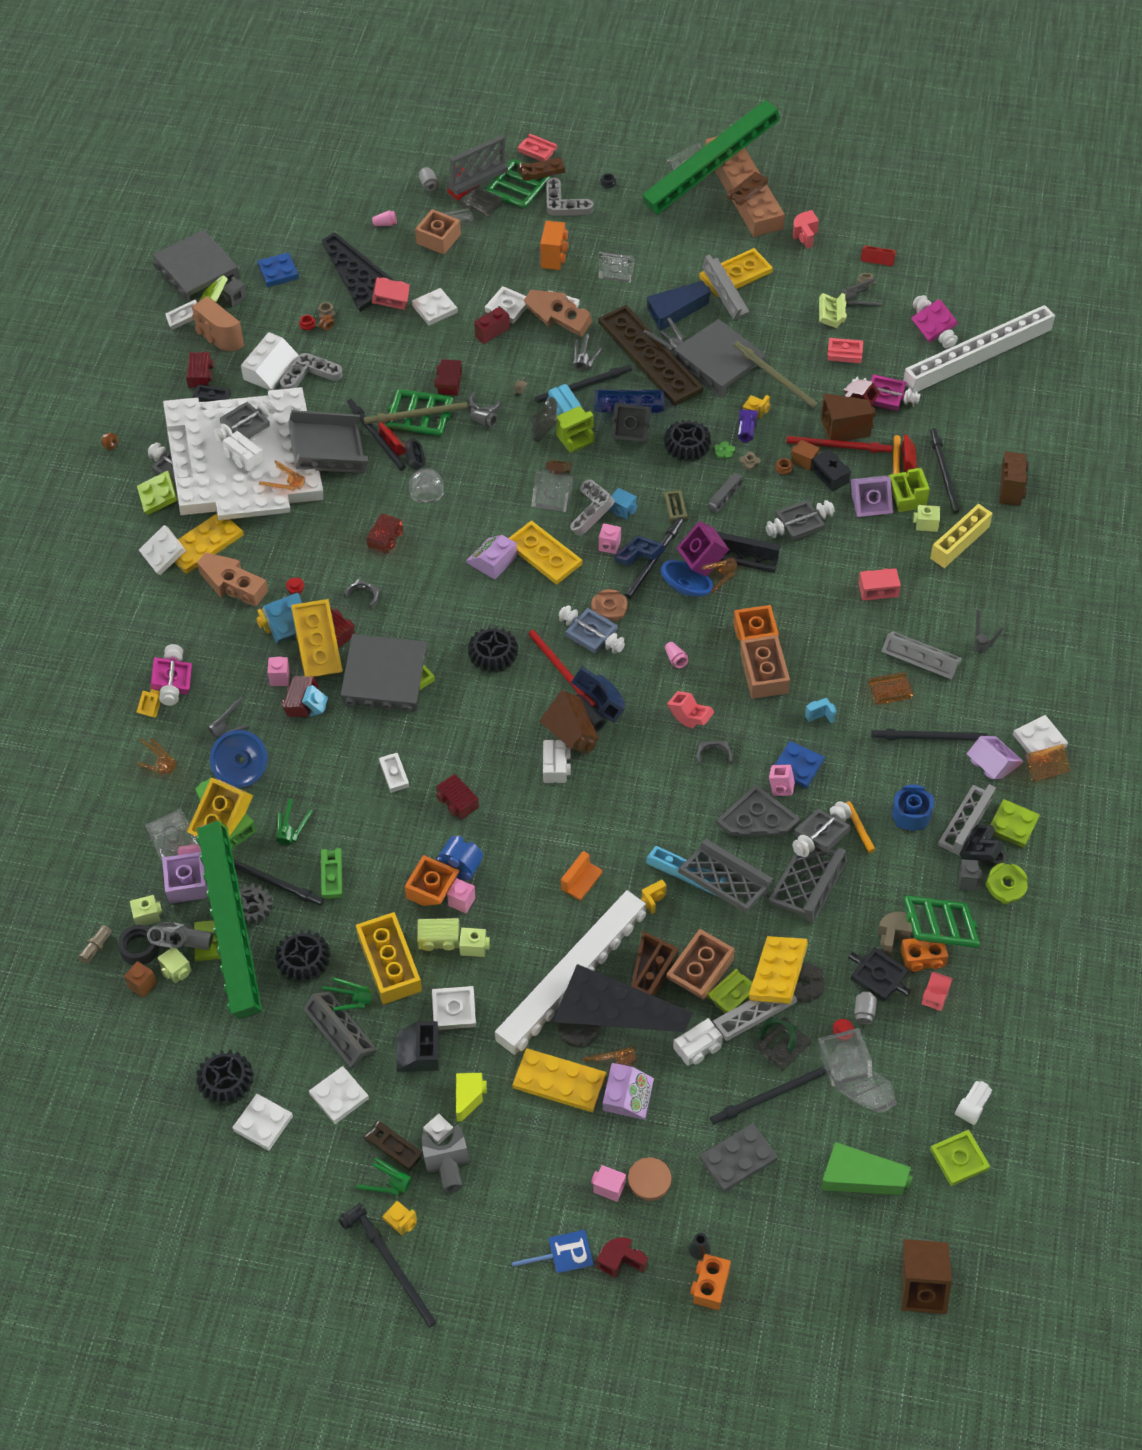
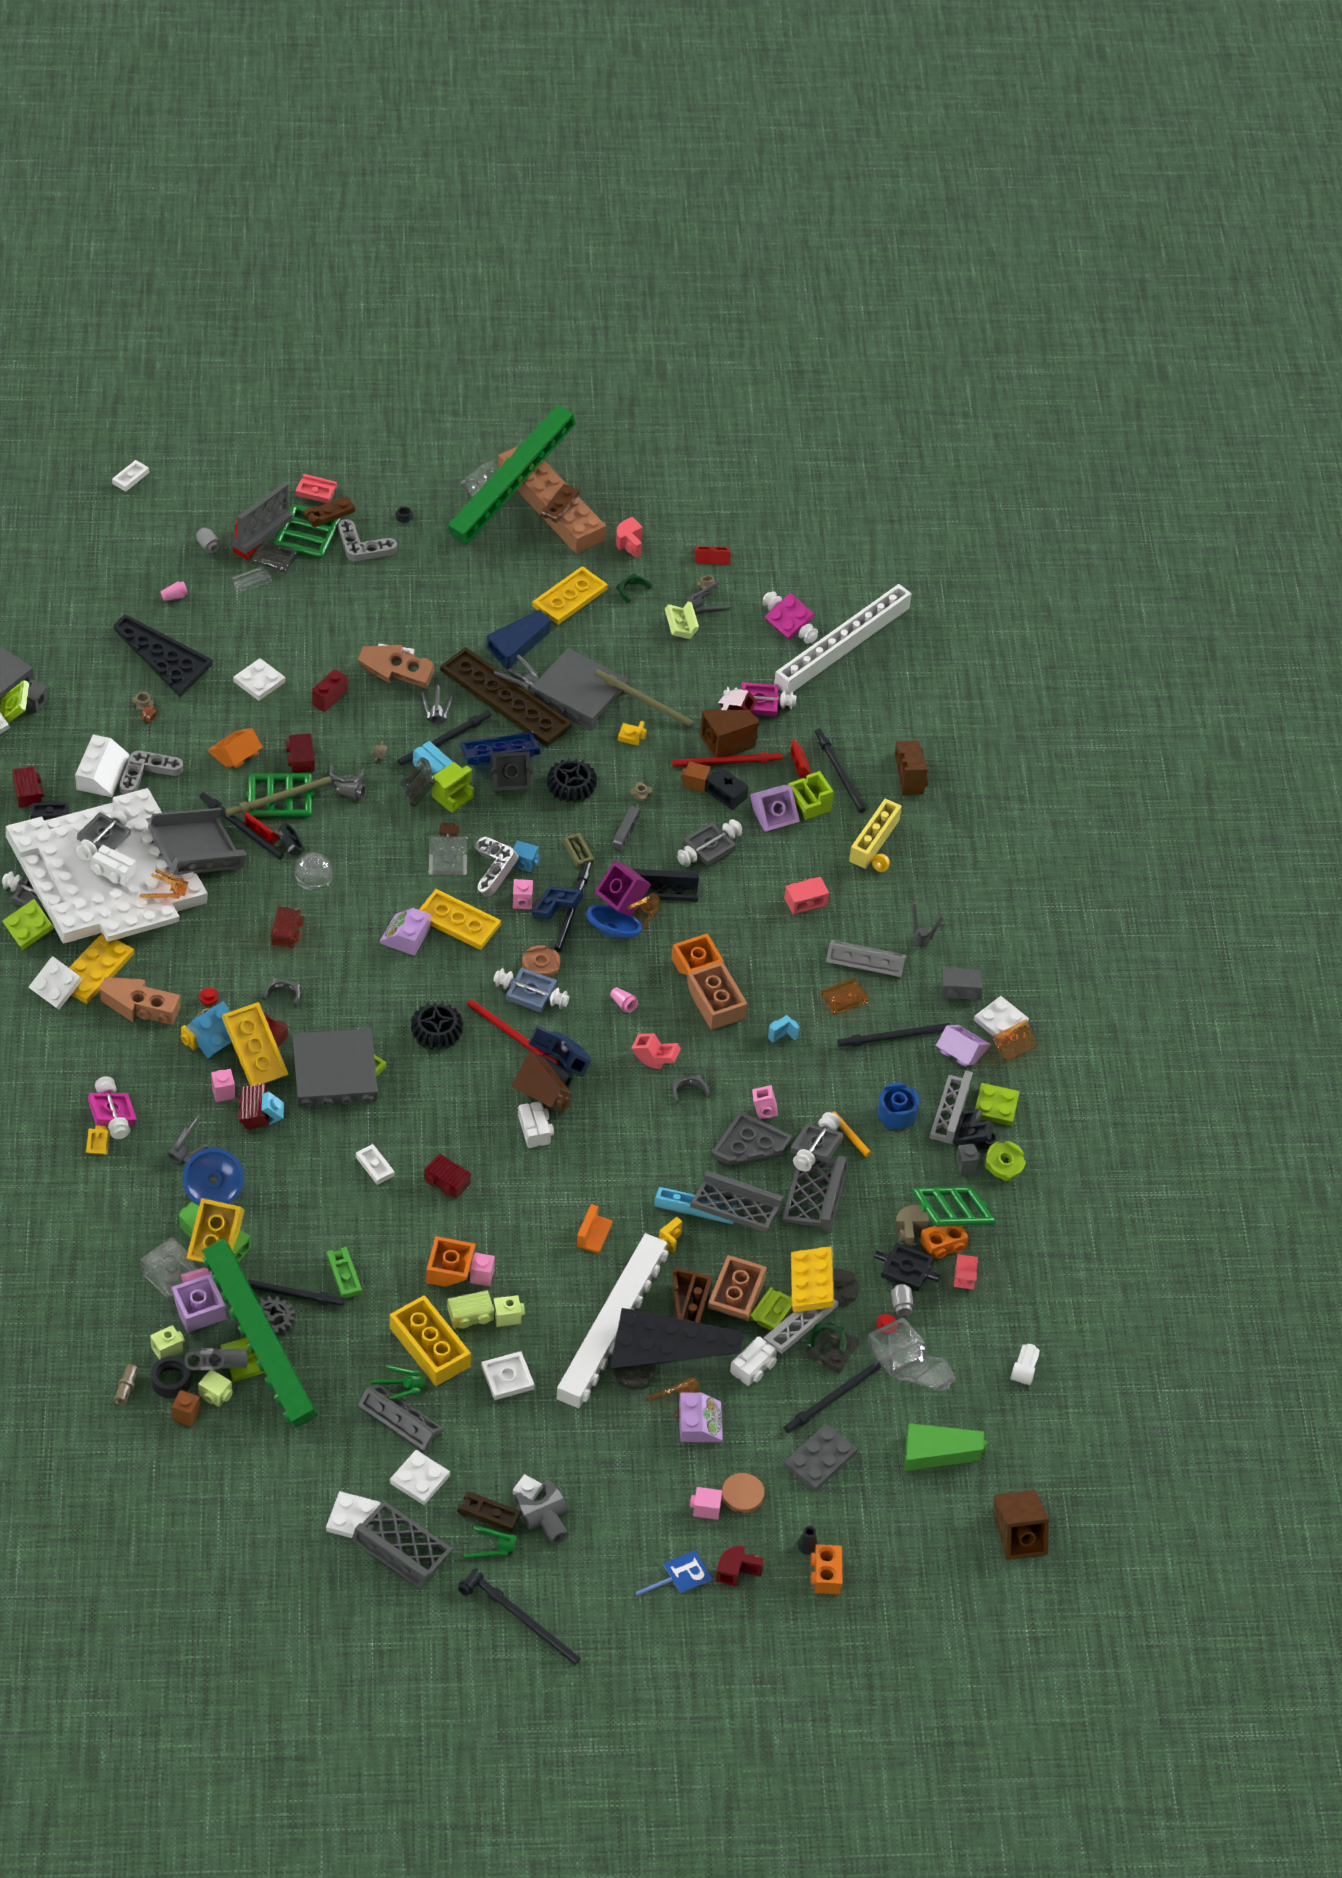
camera: 20 degrees left, 5 degrees down
(164, 761) = (134, 1196): clear orange plant -> none
(217, 325) = (33, 735): nougat brick -> none
(228, 1087) = (311, 1490): black gear -> none
(278, 269) = (74, 664): blue plate -> none
(281, 1167) = (392, 1553): none -> dark grey fence
(286, 834) = (285, 1244): green plant -> none
(307, 322) = (127, 717): red plate -> none
(310, 947) = (343, 1348): black gear -> none
(380, 115) = (130, 475): none -> white plate
(390, 293) = (210, 672): coral brick -> none
(393, 364) = (236, 748): none -> orange slope
(400, 1218) = (517, 1575): yellow bracket -> none
(418, 1047) = (486, 1417): black slope -> none
(437, 231) = (239, 597): nougat brick -> none
(461, 856) = (473, 1230): blue brick -> none
(469, 1093) = (547, 1449): neon yellow slope -> none
(510, 301) = (341, 661): white plate -> none
(553, 245) = (370, 594): orange brick -> none
(559, 1080) = (630, 1422): yellow plate -> none
(616, 266) = (443, 607): clear slope -> none
(724, 288) = (565, 614): light grey fence -> none
(724, 450) = (610, 785): bright green plant -> none
(747, 422) = (628, 753): dark purple piece -> none
(784, 466) = (677, 791): dark orange plate -> none
(800, 267) = (632, 579): none -> dark green cap
(803, 763) = (782, 1083): blue plate -> none
(845, 350) = (706, 661): coral plate -> none
(896, 454) = (787, 761): light orange bar -> none
(927, 518) = (836, 821): yellowish green brick -> none
(960, 564) = (880, 862): none -> yellow plate
(960, 1158) = (1025, 1416): lime plate -> none
(1008, 696) = (961, 983): none -> dark grey brick

